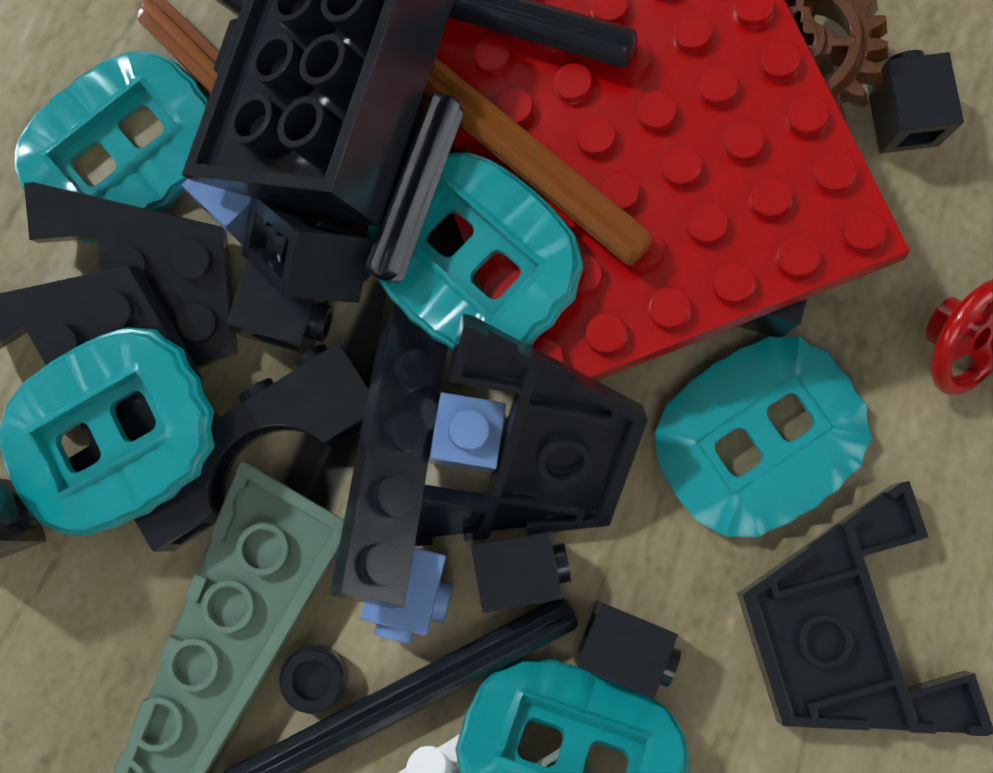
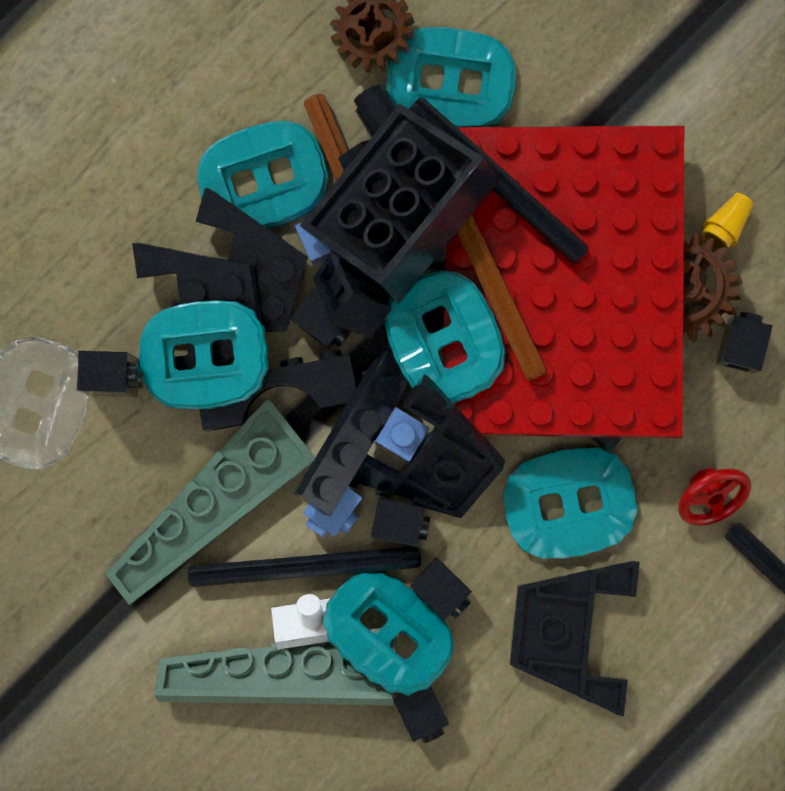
camera: 20 degrees right, 5 degrees up
(313, 678) = (261, 535): black tile -> none
(414, 188) = (427, 288): black axle -> none

